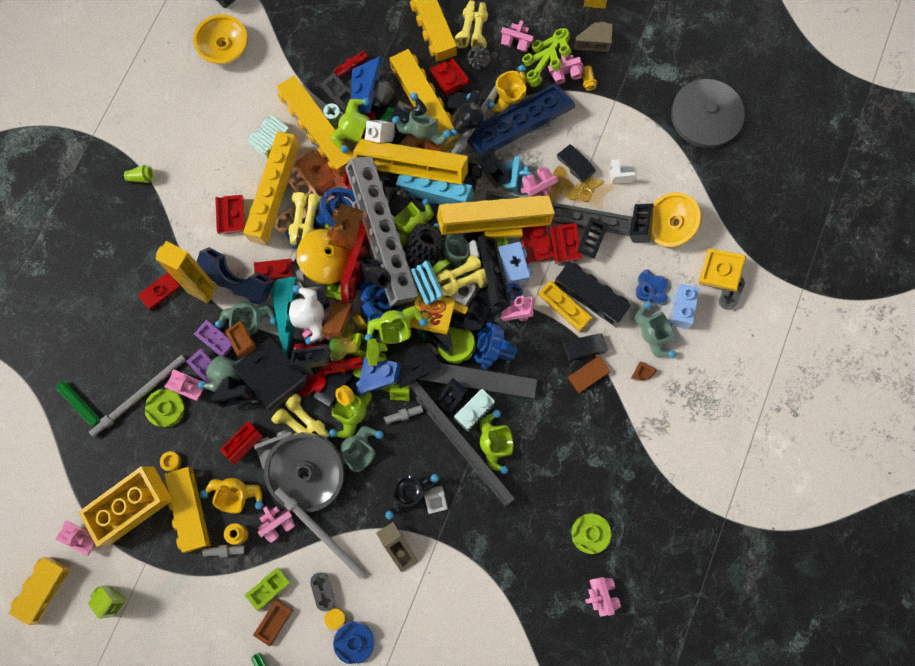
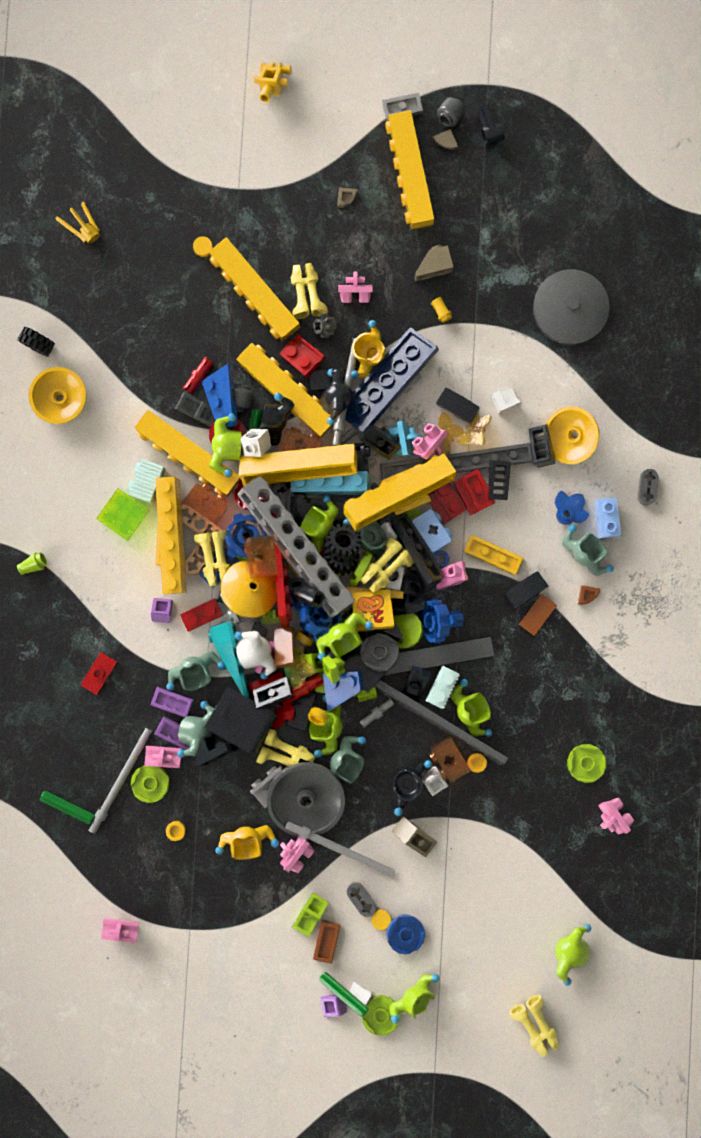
camera: 20 degrees left, 10 degrees up
(39, 590) = (104, 988): yellow brick -> none
(105, 602) = (169, 977): lime slope -> none
(125, 506) = (154, 888): yellow brick -> none
(186, 271) = (129, 657): yellow brick -> none
(187, 510) = (210, 870): yellow brick -> none
(223, 551) = (257, 895): light grey bar -> none
(230, 214) = (138, 574): red plate -> none
(237, 158) = (122, 514): none -> clear neon green plate
(238, 254) = (161, 610): none -> medium lavender slope
(240, 339) = (200, 697): dark orange tile -> none
(241, 443) = (236, 792): red plate -> none
(242, 534) = (267, 871): yellow brick -> none
(254, 288) = (143, 633): dark blue arch -> none
(332, 114) = (199, 431): light aqua bush -> none
(420, 269) = (356, 586): medium azure tile -> none
(420, 358) = (374, 654): none -> dark grey tile
(423, 128) = (297, 425): sand green piece -> none
(460, 470) = (457, 768): none -> clear orange brick
(483, 495) = (477, 762): none -> yellow tile
(559, 38) = (393, 299): lime plant -> none
(569, 65) = (424, 305): bright pink hips -> none
(592, 294) = (516, 535): black brick -> none
(722, 269) = (633, 468): yellow tile -> none

